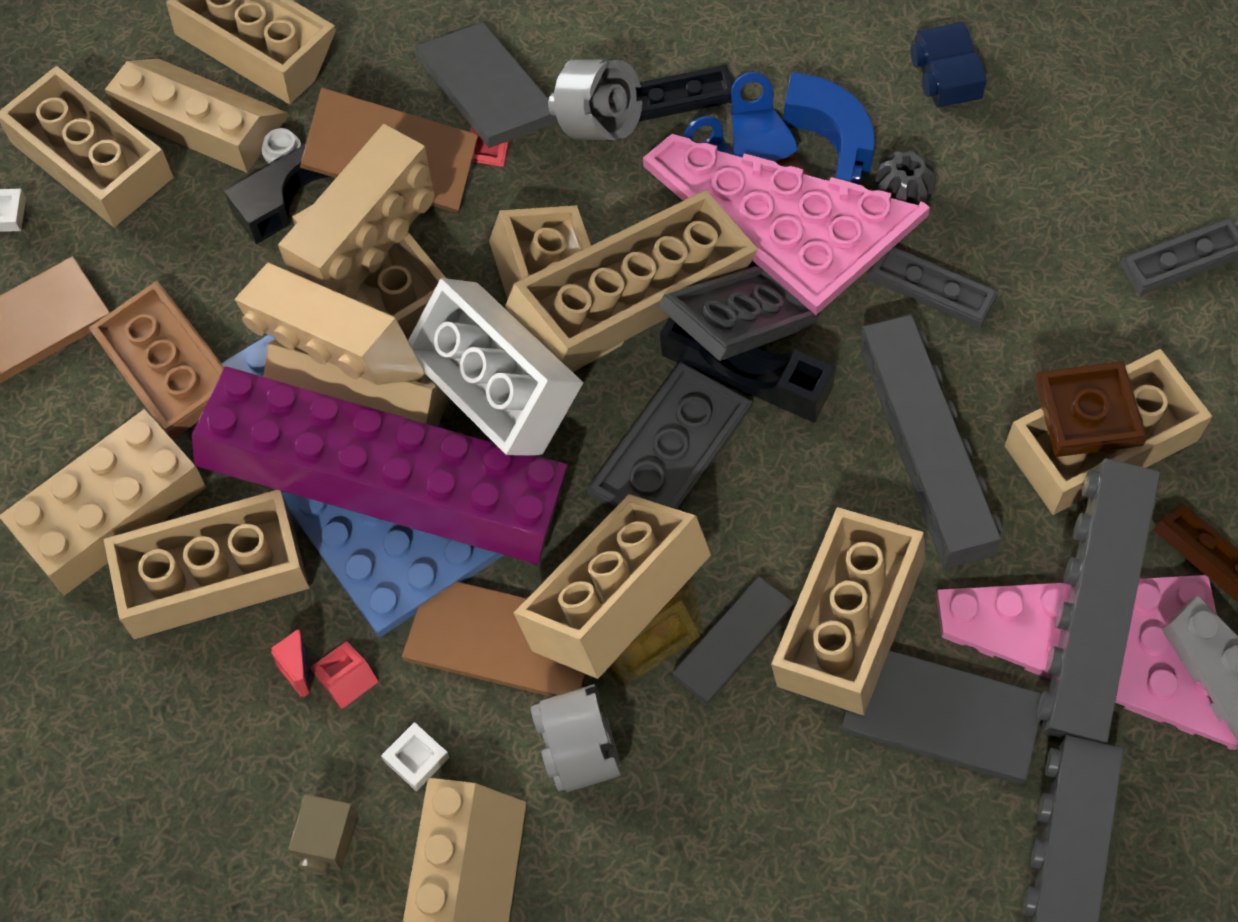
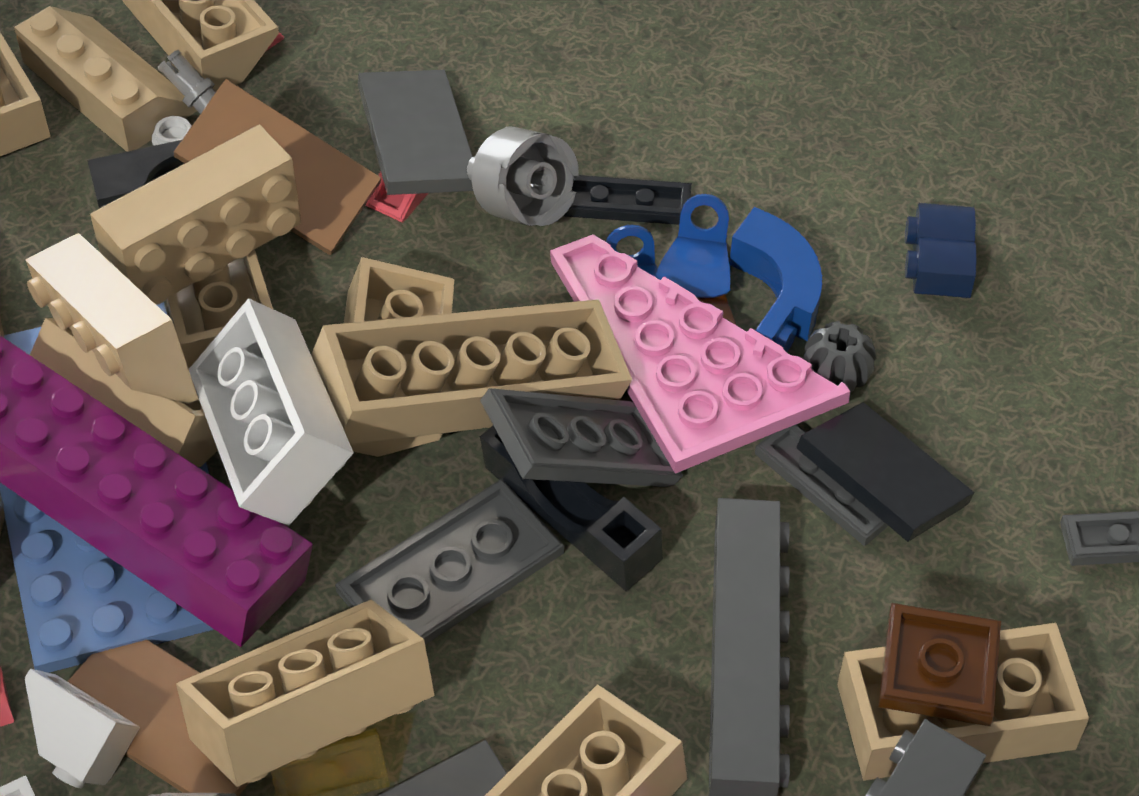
camera: 15 degrees right, 10 degrees down
(284, 100) = (188, 81): none -> light grey pin
(439, 673) = (76, 730): none -> white slope
(975, 263) = (885, 471): none -> black tile

